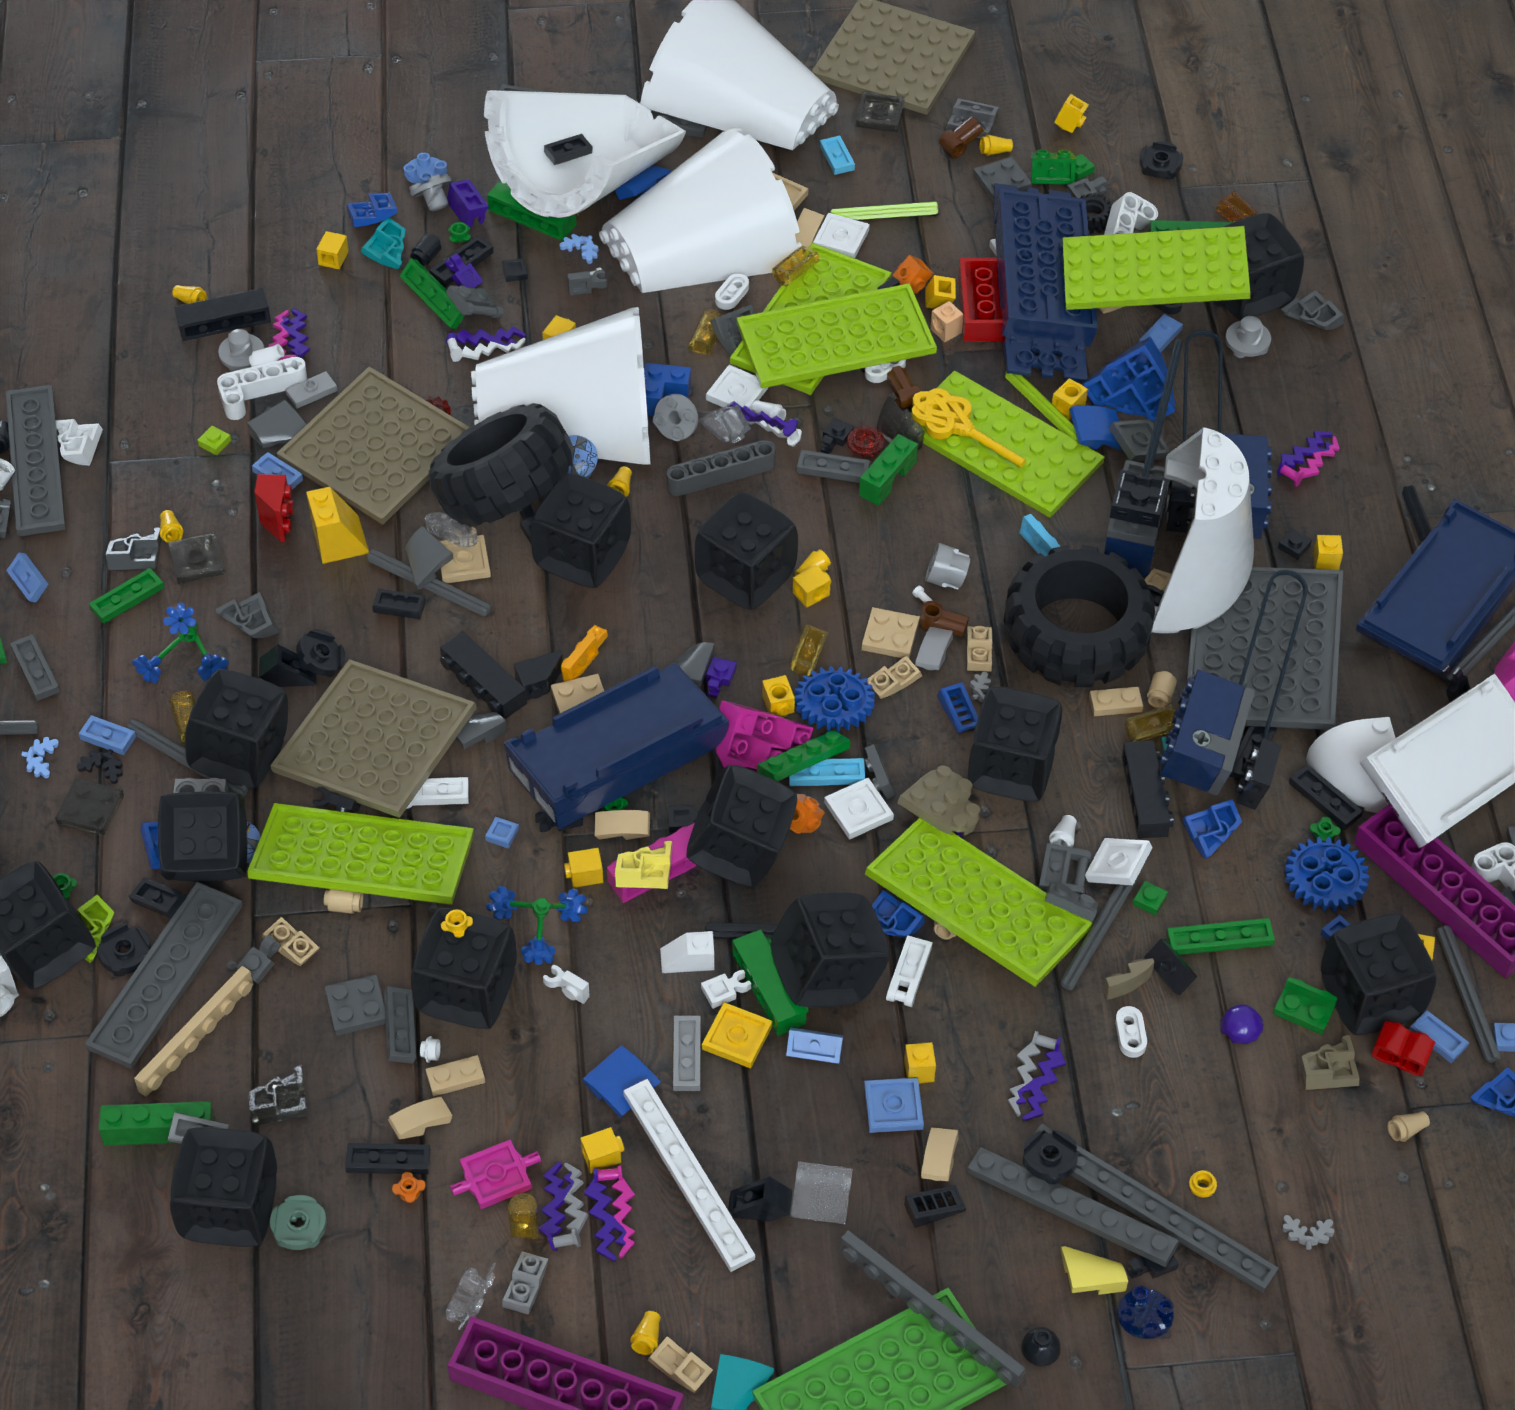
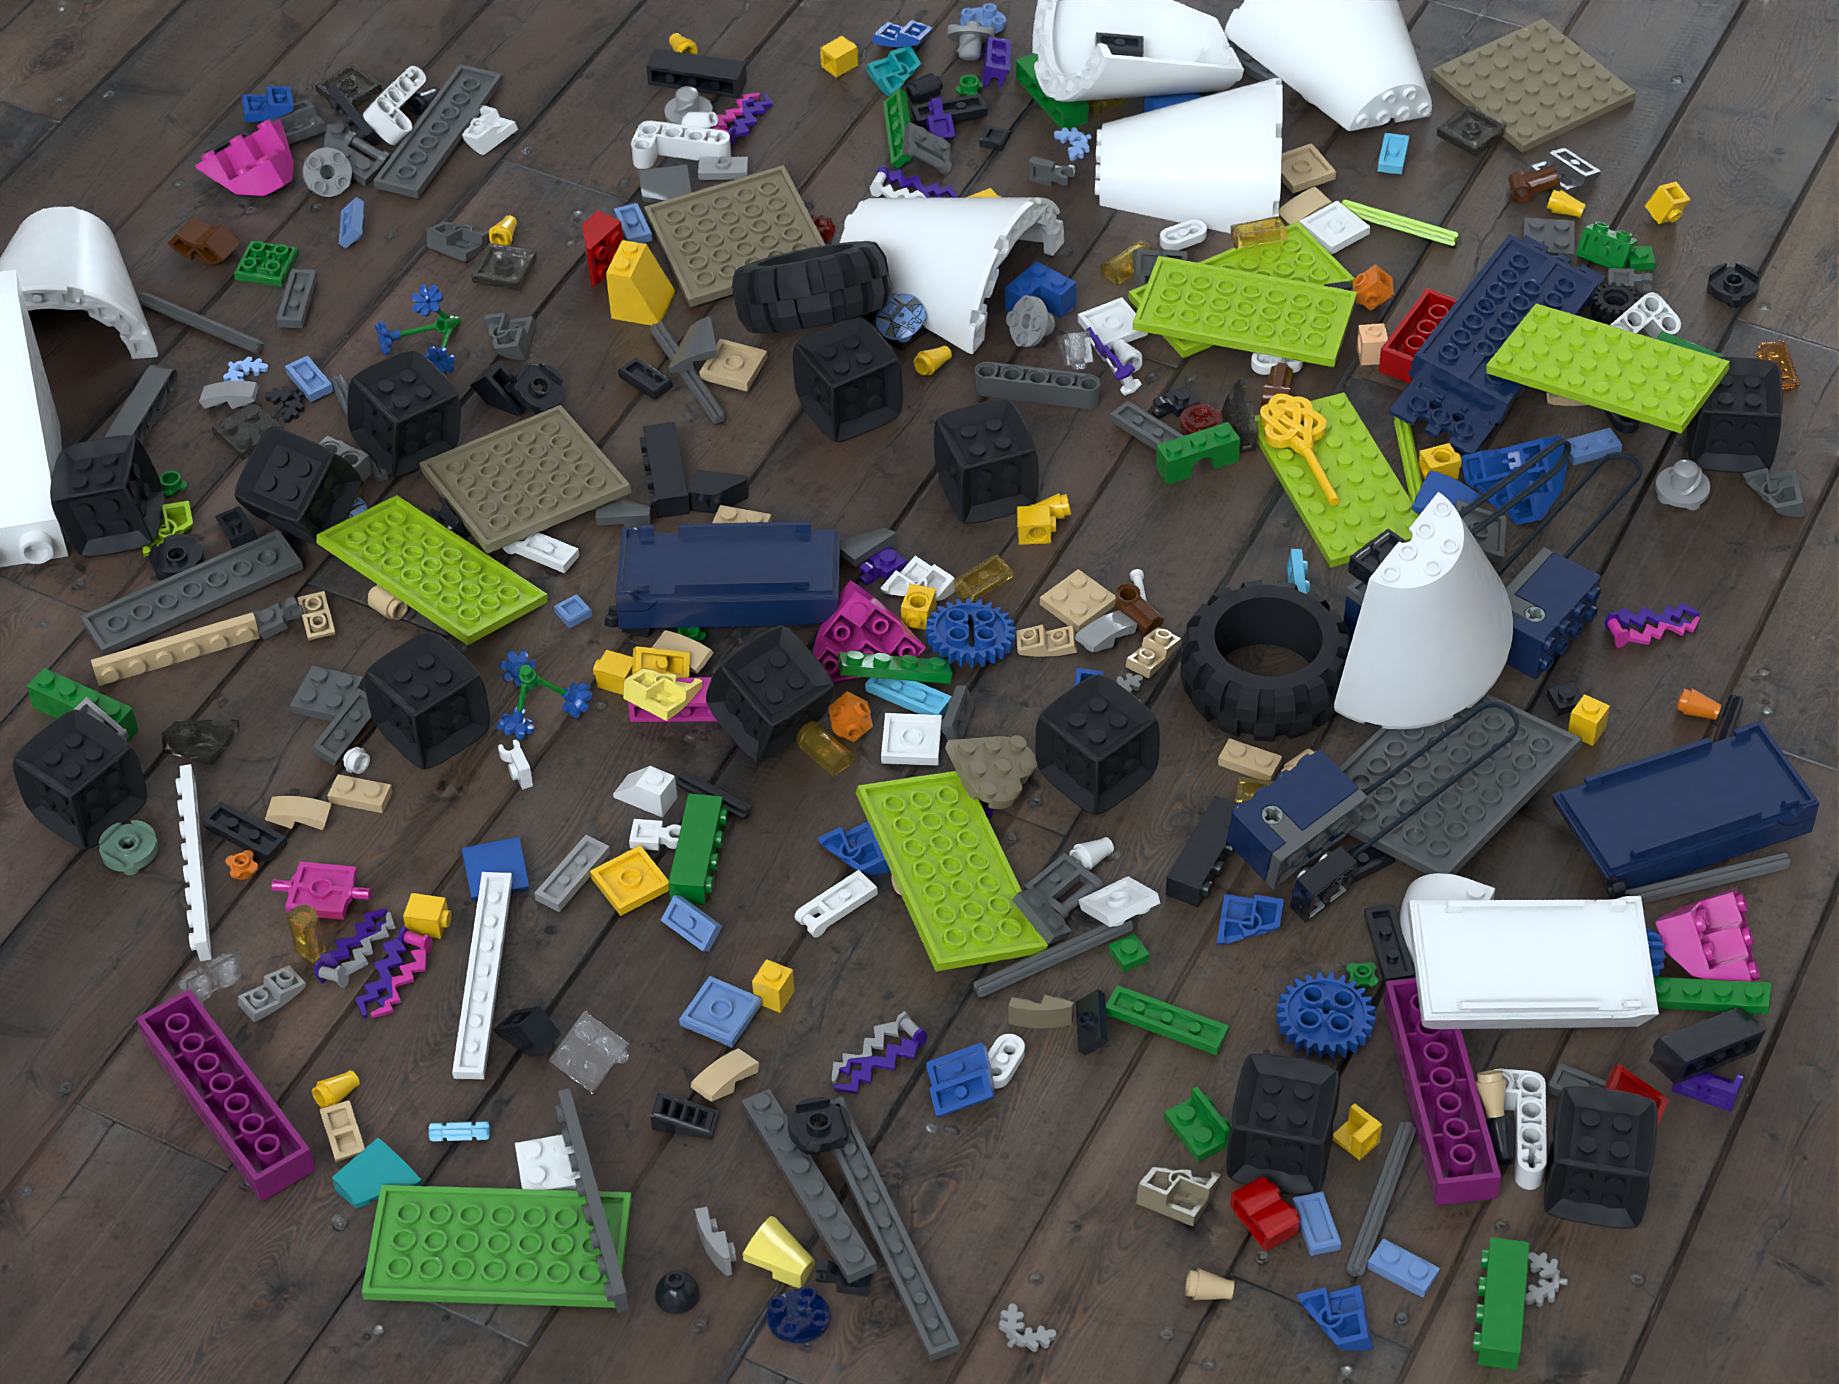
camera: 35 degrees right, 5 degrees down
(52, 777) = (234, 392): none -> light grey slope
(126, 595) = (420, 272): green plate -> none
(214, 440) = (603, 176): lime plate -> none
(374, 1212) = (194, 871): none -> white plate
(451, 530) = (739, 337): clear beam -> none
(454, 917) = (432, 648): yellow plate -> none
(583, 654) = (771, 491): light orange hinge -> none
(624, 840) = (661, 661): none -> yellow slope
(755, 670) = (921, 574): none -> white slope
(771, 1312) = (459, 1131): none -> medium azure axle
(803, 851) = (824, 748): none -> clear yellow brick
(829, 949) = (758, 837): black piece -> none
(862, 1301) = (545, 1164): none -> white plate
(940, 291) = (1386, 312): yellow brick -> none
(947, 567) = (1177, 562): light grey piece -> none
(1046, 1295) = (715, 1242): none -> light grey slope
(1116, 1063) = (960, 1079): none -> blue slope
(1206, 1178) = (952, 1225): yellow plate -> none
(1241, 1024) = (1120, 1110): dark purple hair -> none
(1387, 505) = (1697, 705): none -> orange cone
(1491, 871) = (1492, 1089): none -> tan cone

